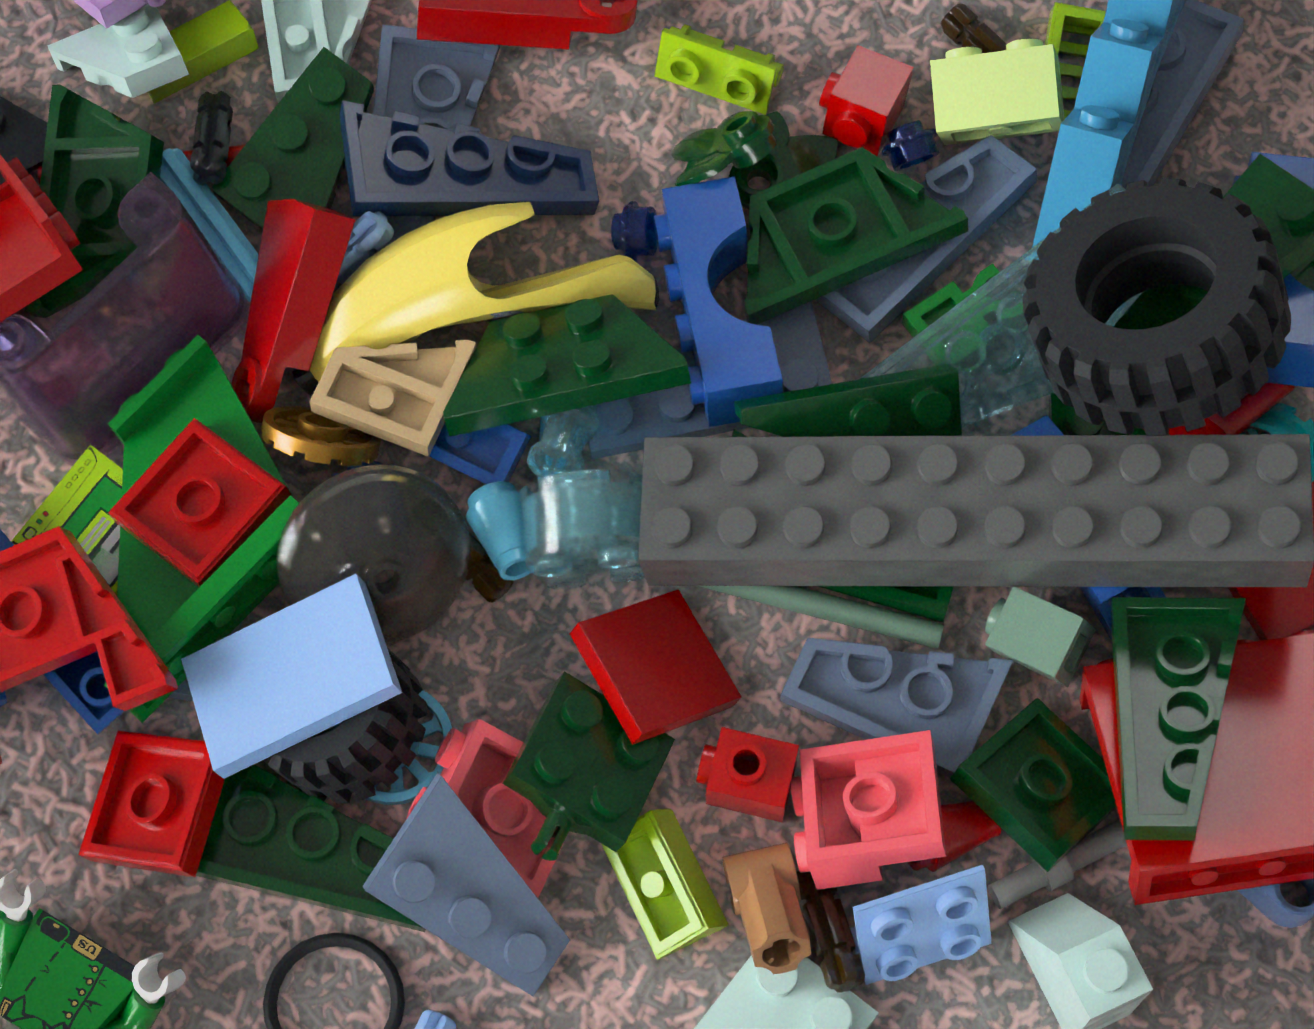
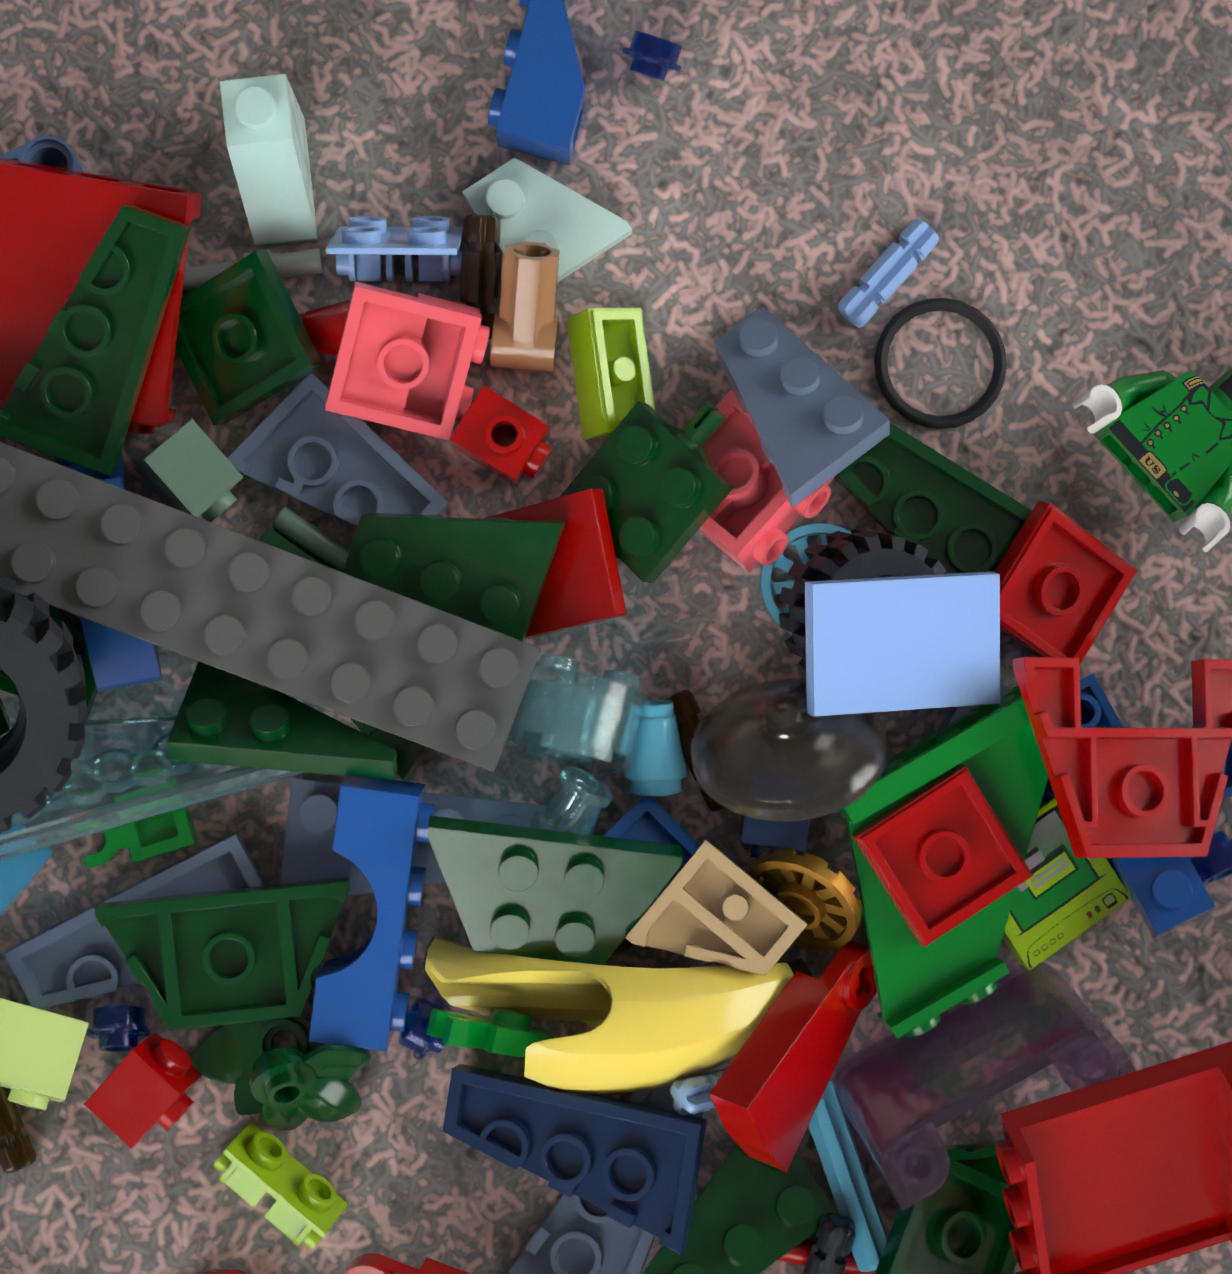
camera: 170 degrees left, 15 degrees up
(566, 237) = (504, 1033): none -> green plate
(742, 629) = (464, 566): none -> dark green wing

